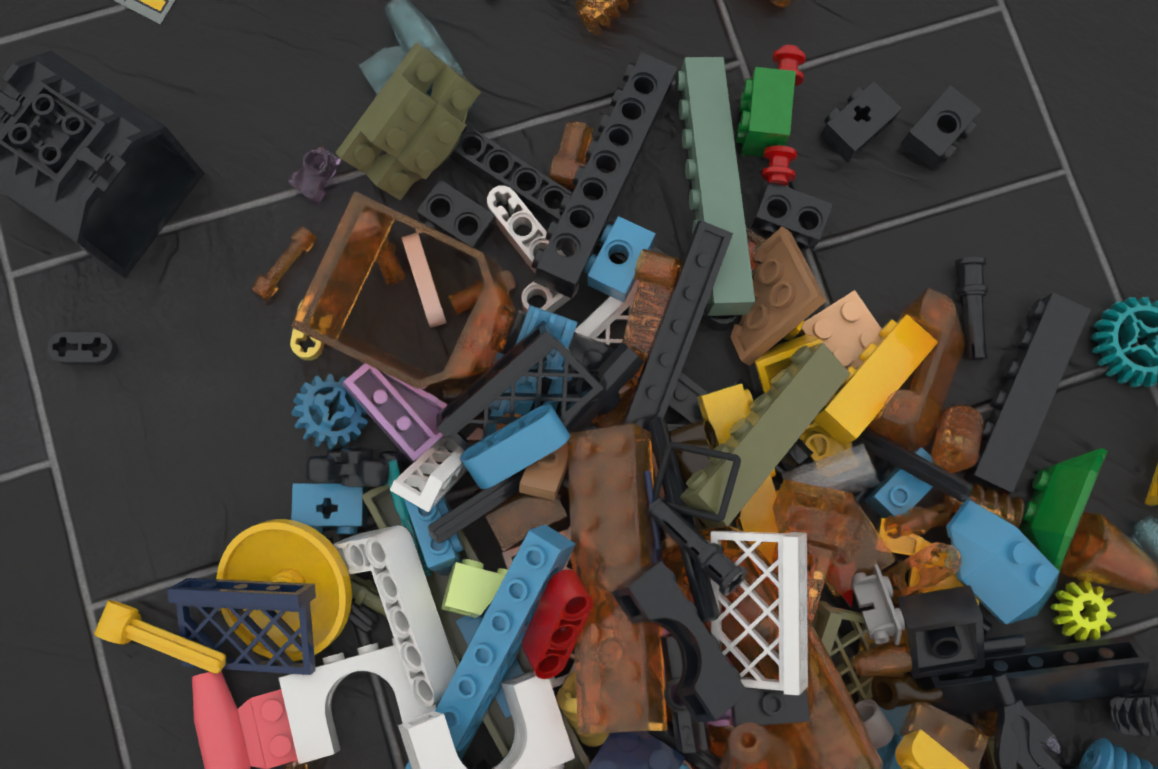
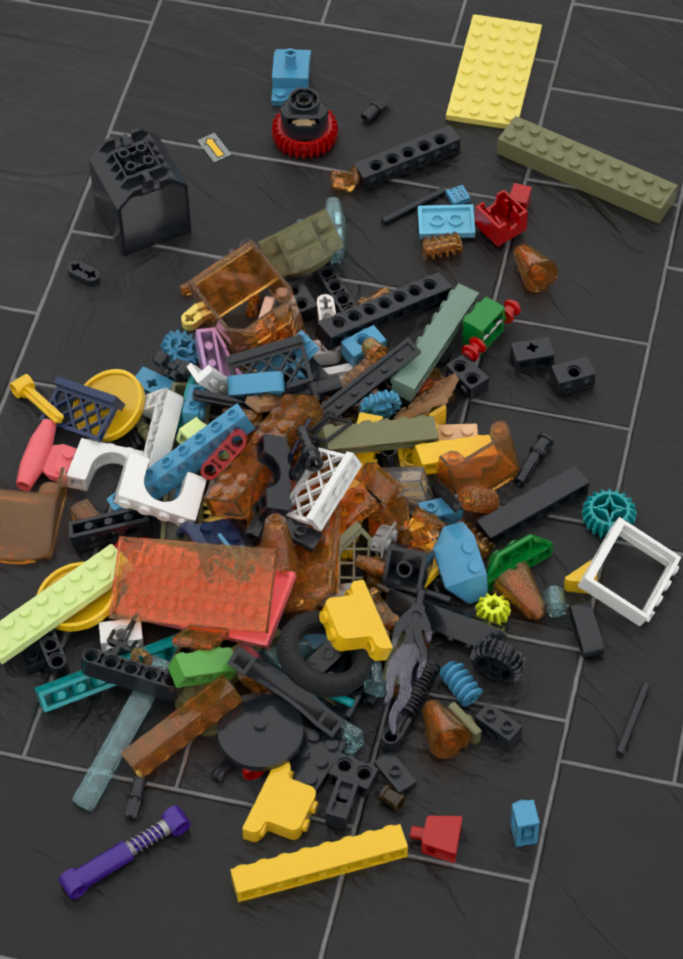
camera: 35 degrees right, 25 degrees down
(710, 352) = (381, 404): none -> dark azure gear

